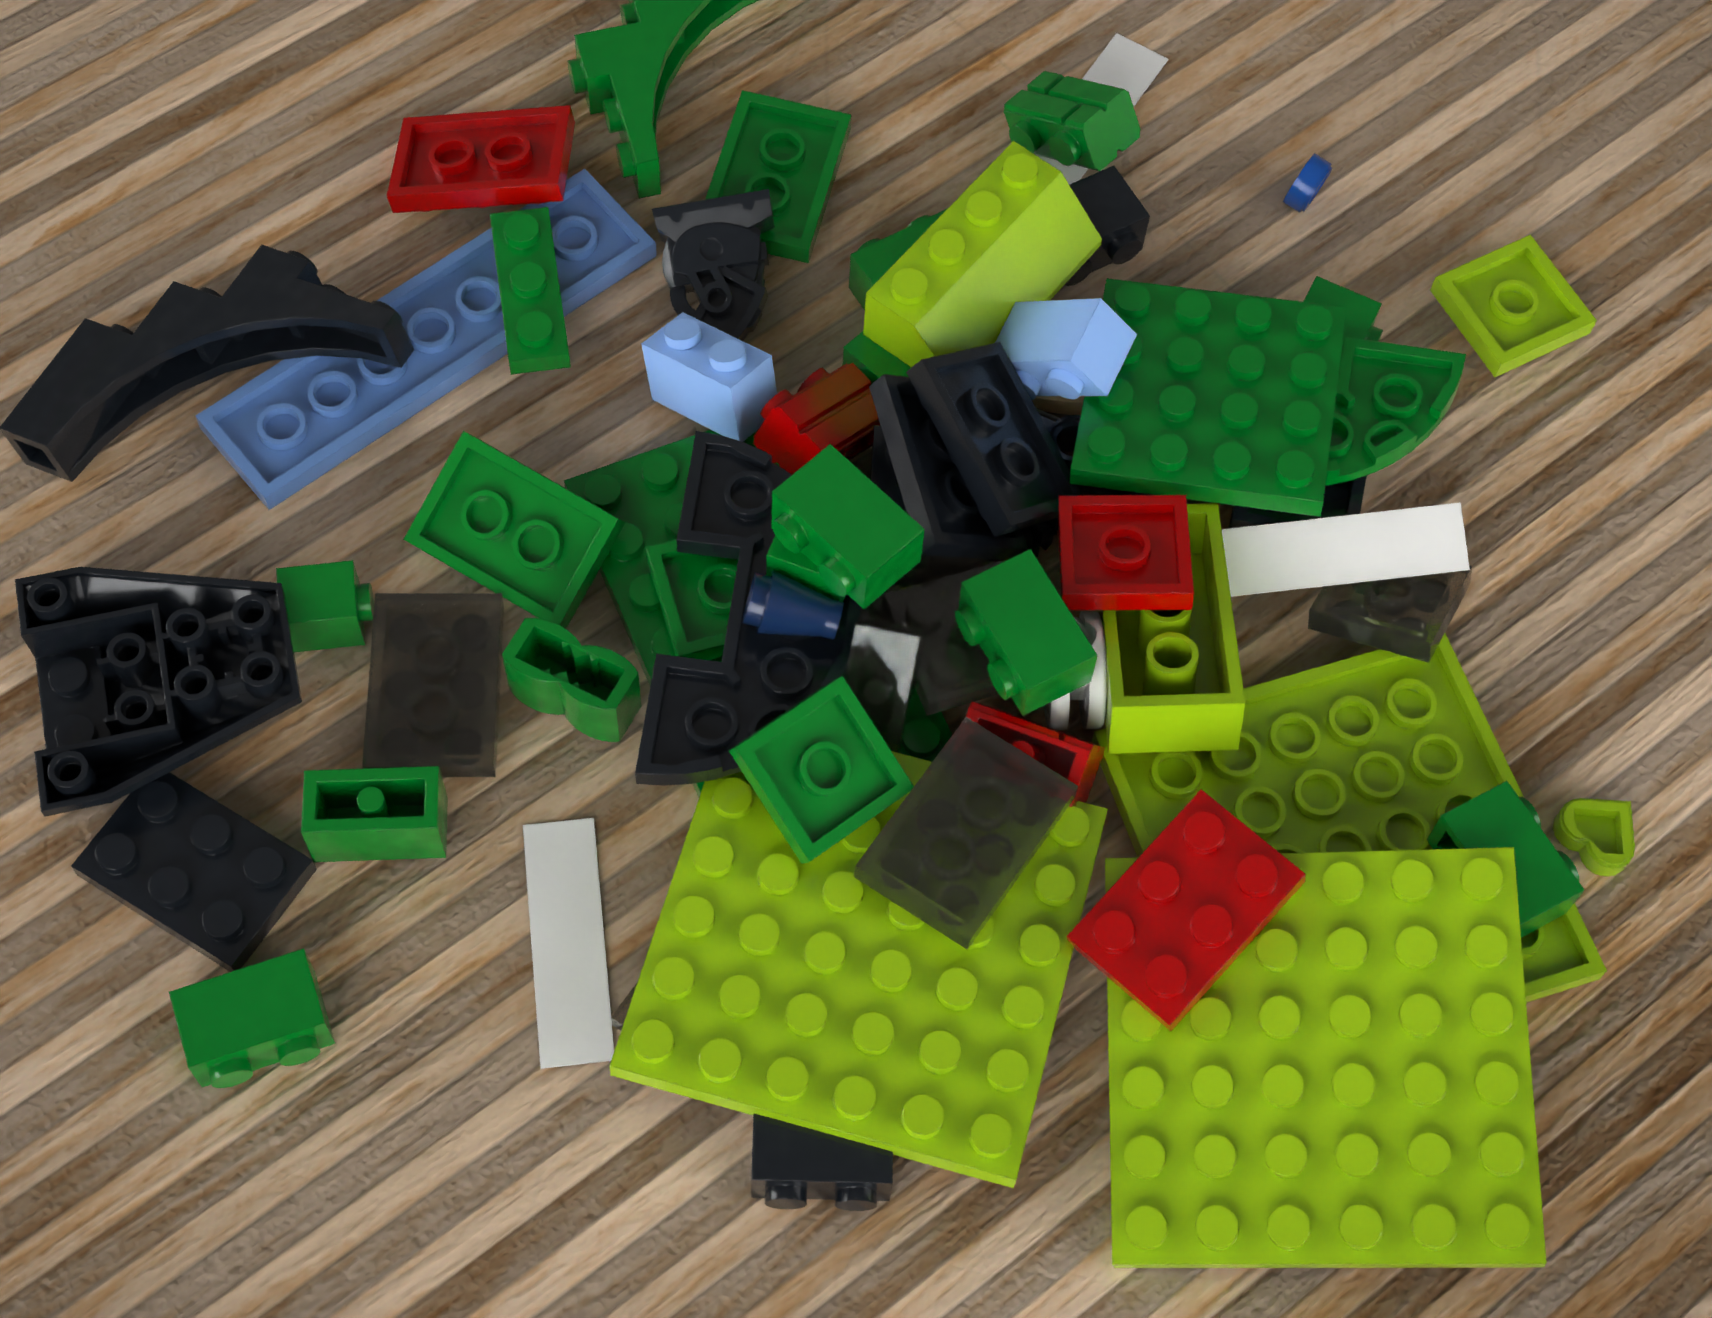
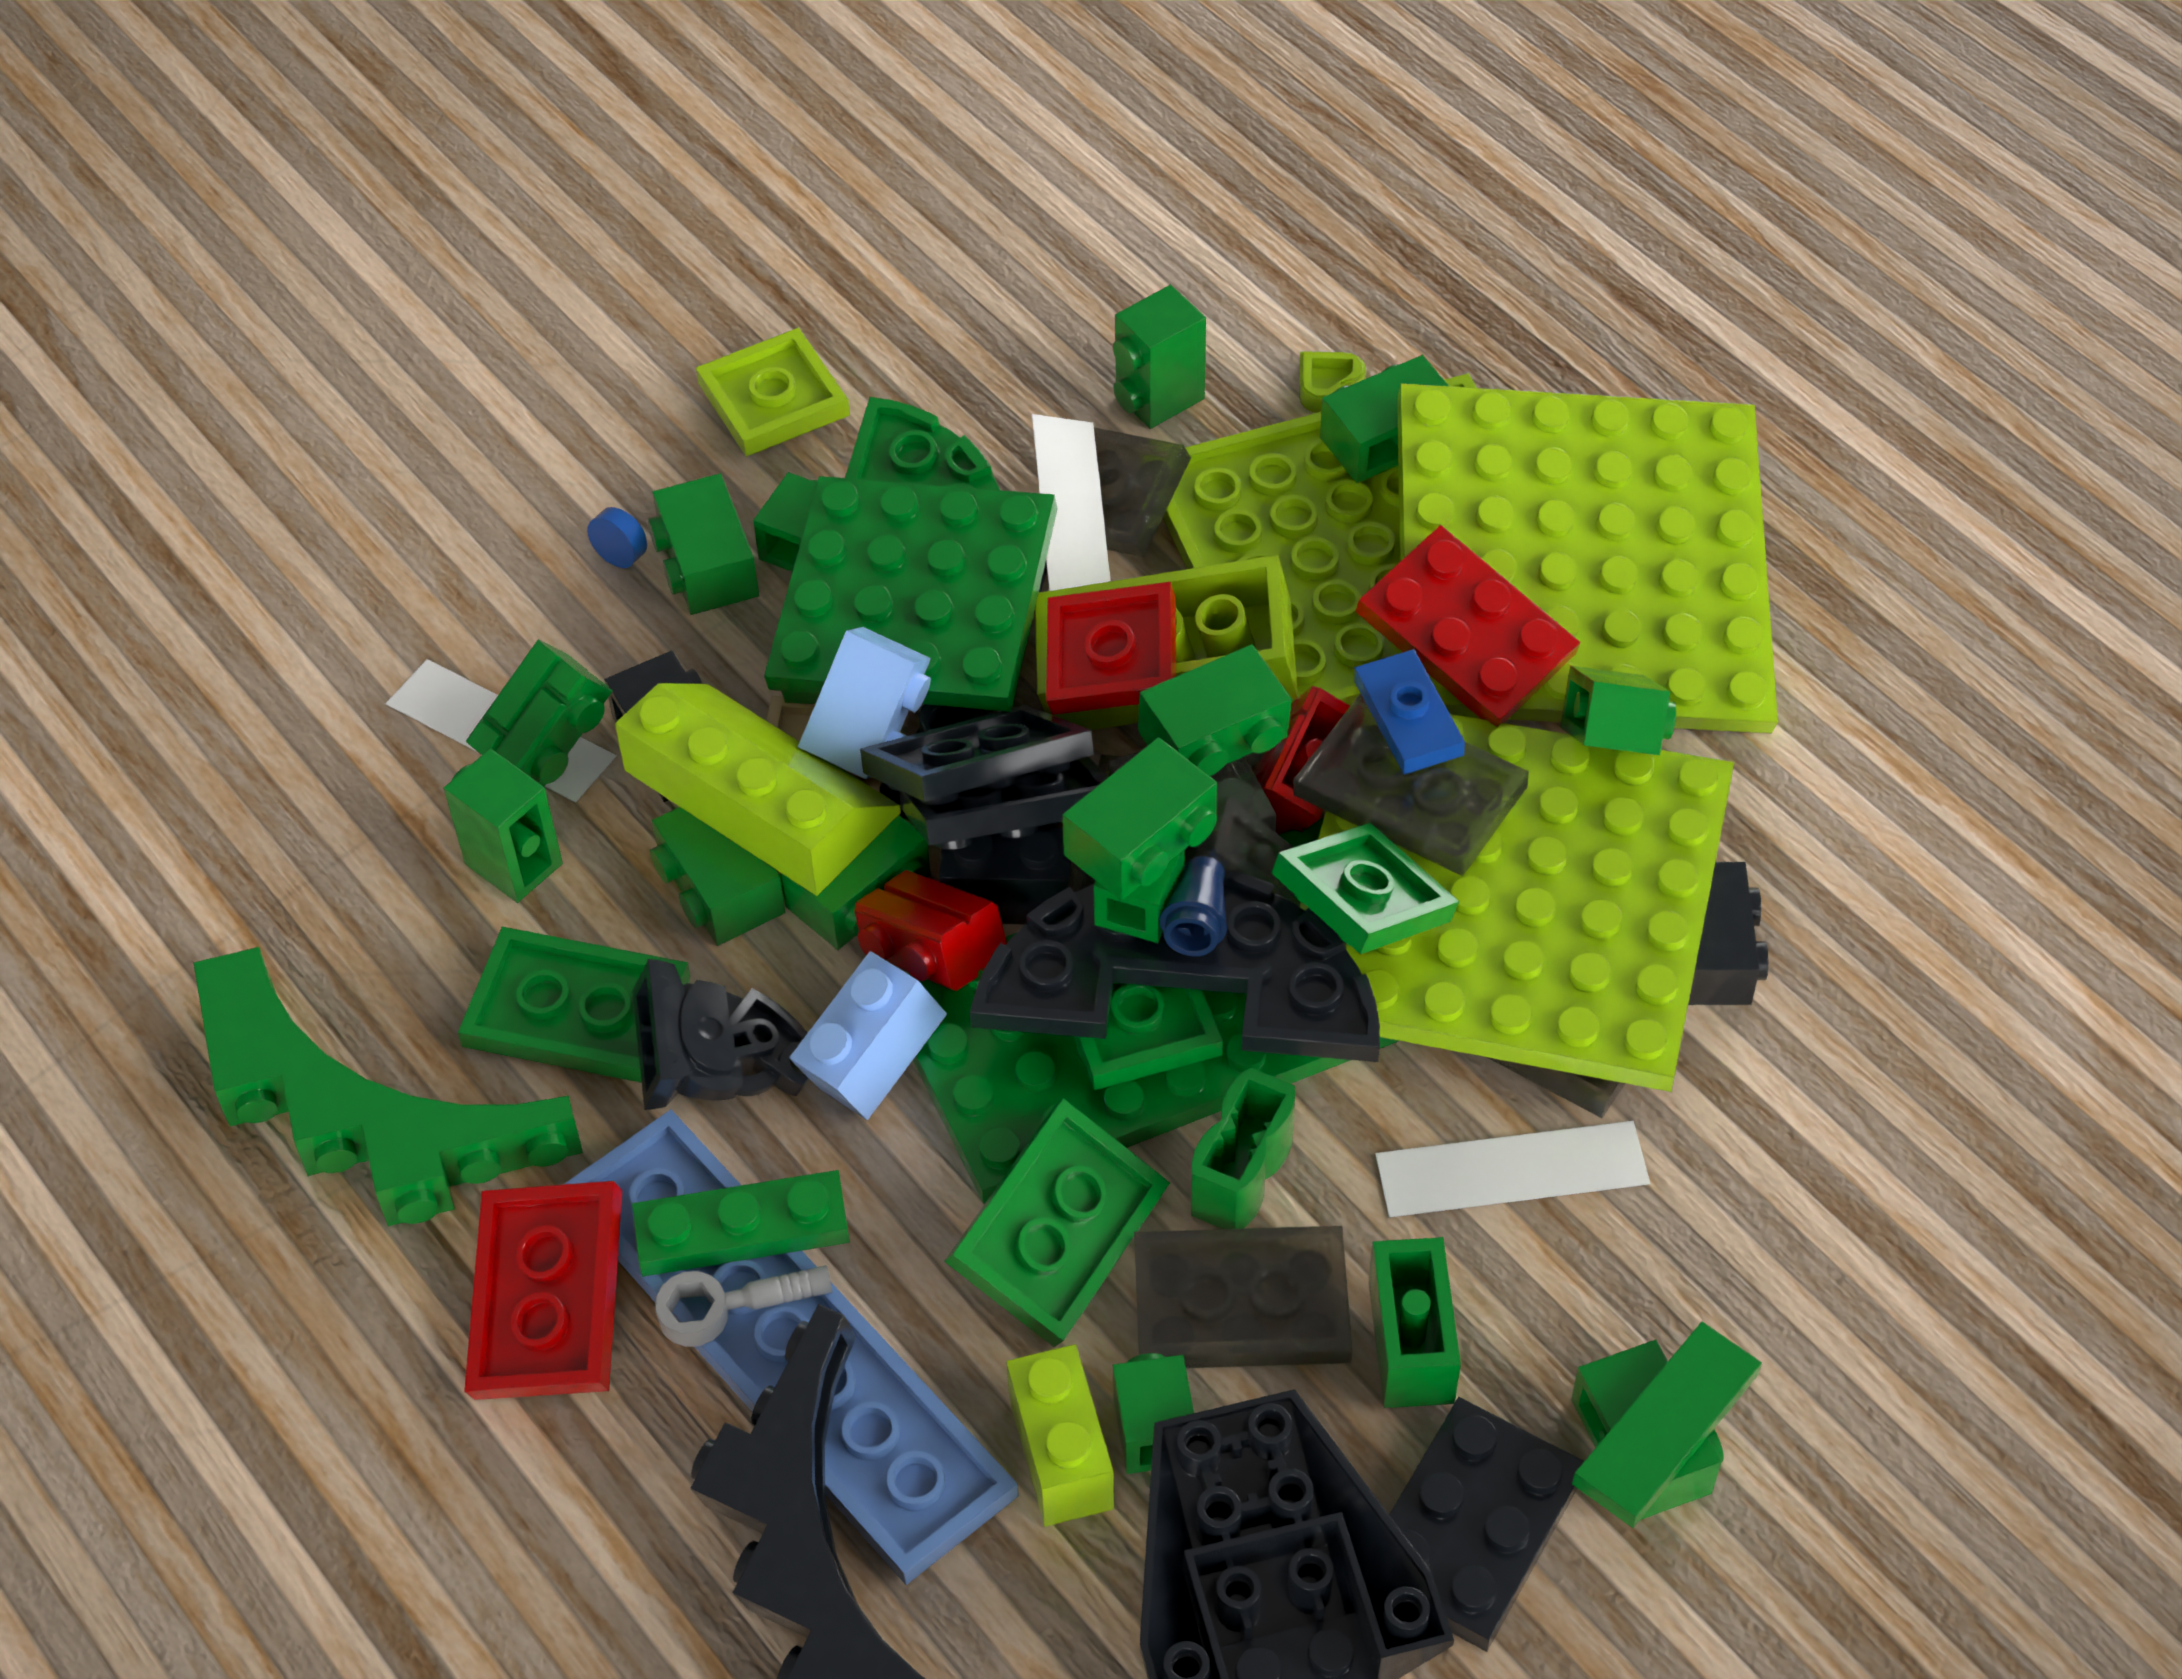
camera: 85 degrees left, 10 degrees down
(224, 1016) = (1666, 1424): none -> green tile
(305, 526) = (1060, 1435): none -> lime brick
(454, 279) = (753, 1295): none -> light grey piece
(944, 98) = (503, 825): none -> green brick
(1042, 822) = (1409, 711): none -> blue plate
(1072, 1051) = (1617, 710): none -> green brick
(1289, 248) = (704, 544): none -> green brick
(1576, 637) = (1159, 356): none -> green brick

